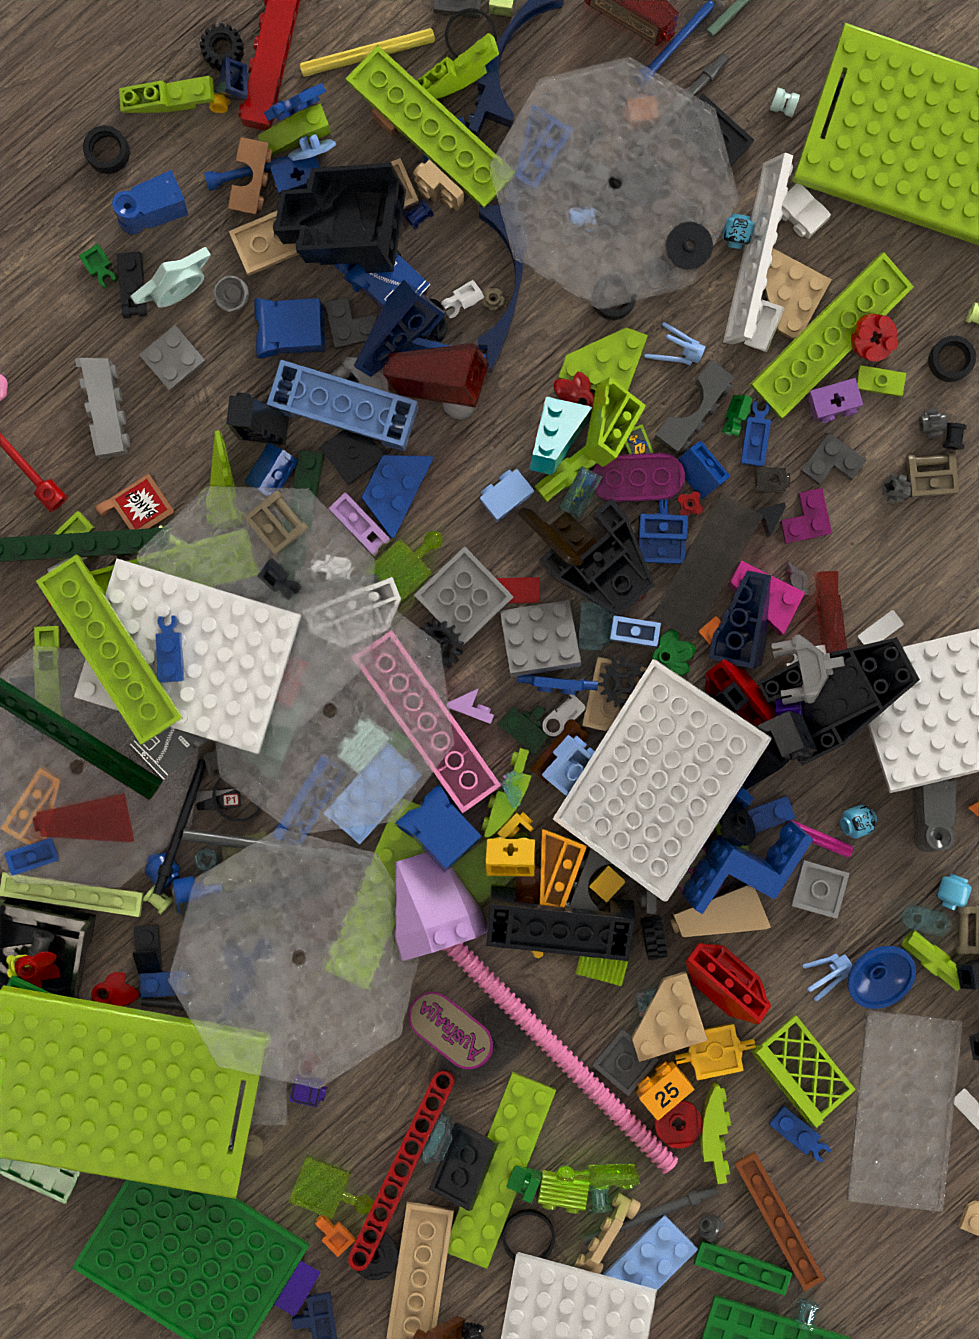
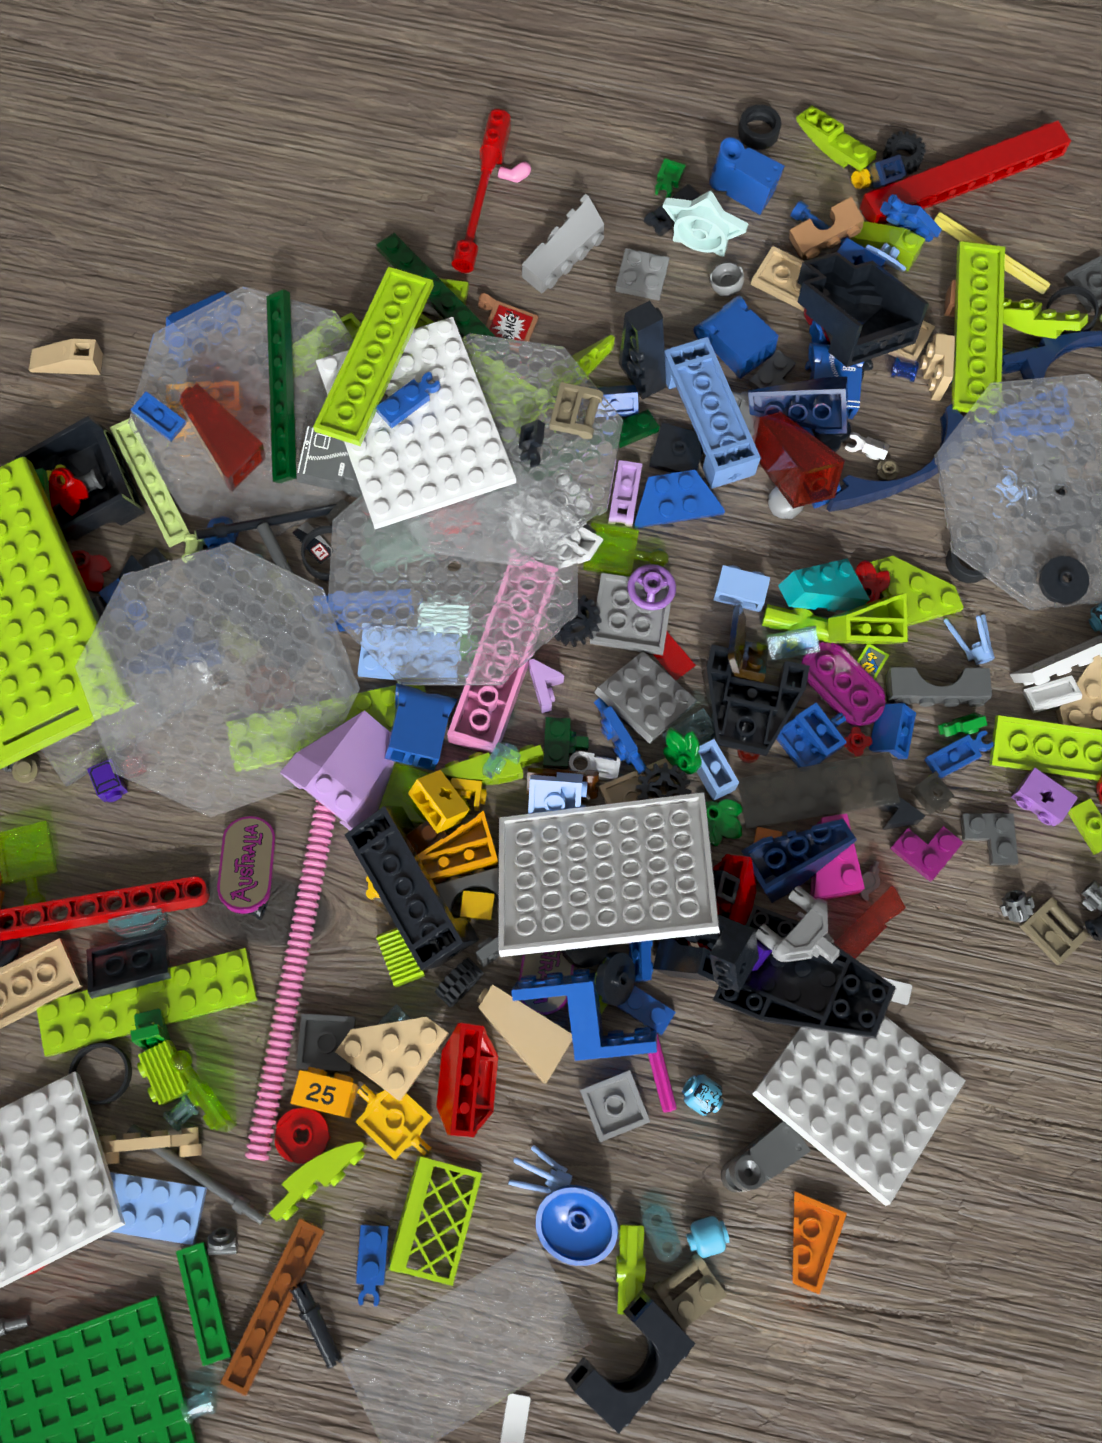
camera: 50 degrees right, 15 degrees down
(438, 571) = (656, 579): none -> medium lavender piece
(606, 646) = (683, 751): none -> green plate
(809, 1200) = (311, 1314): none -> black pin

